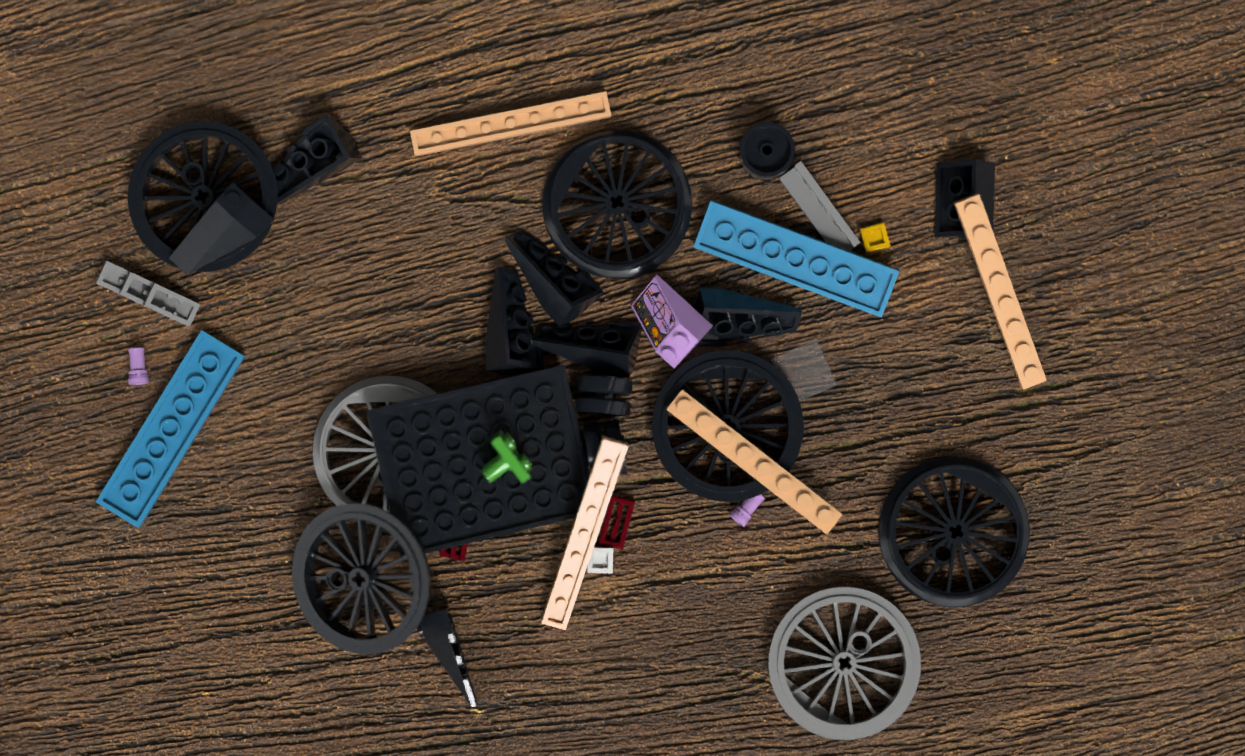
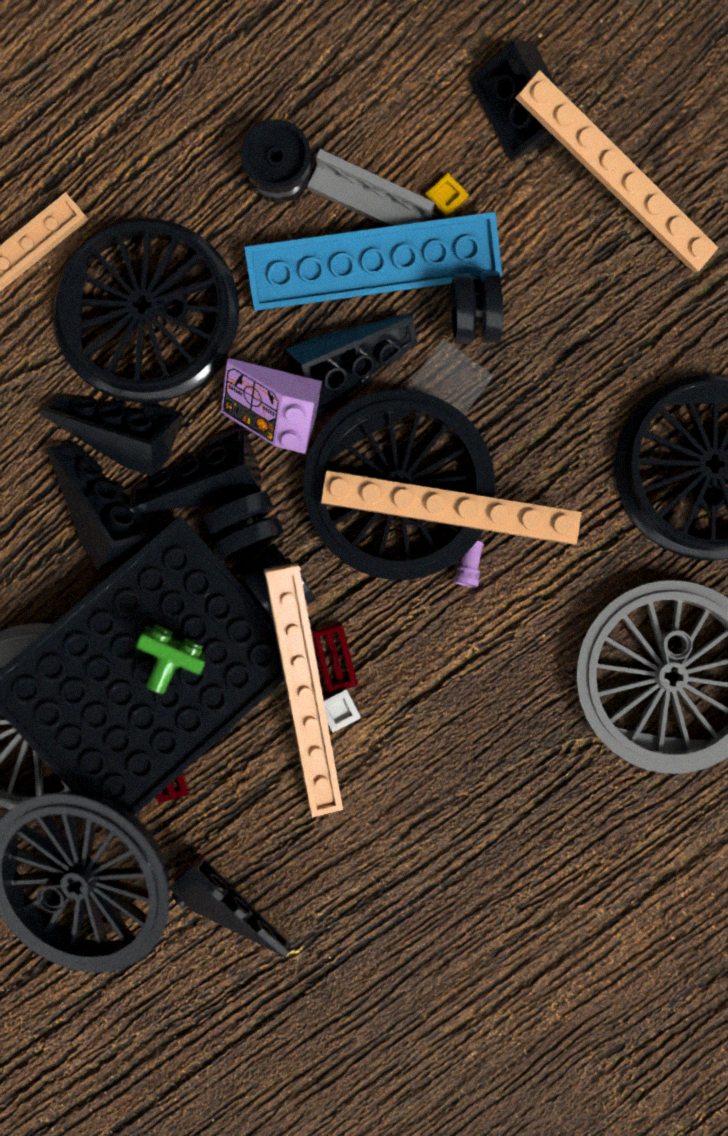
camera: 35 degrees left, 0 degrees up
(850, 332) = (478, 307): none -> black wheel

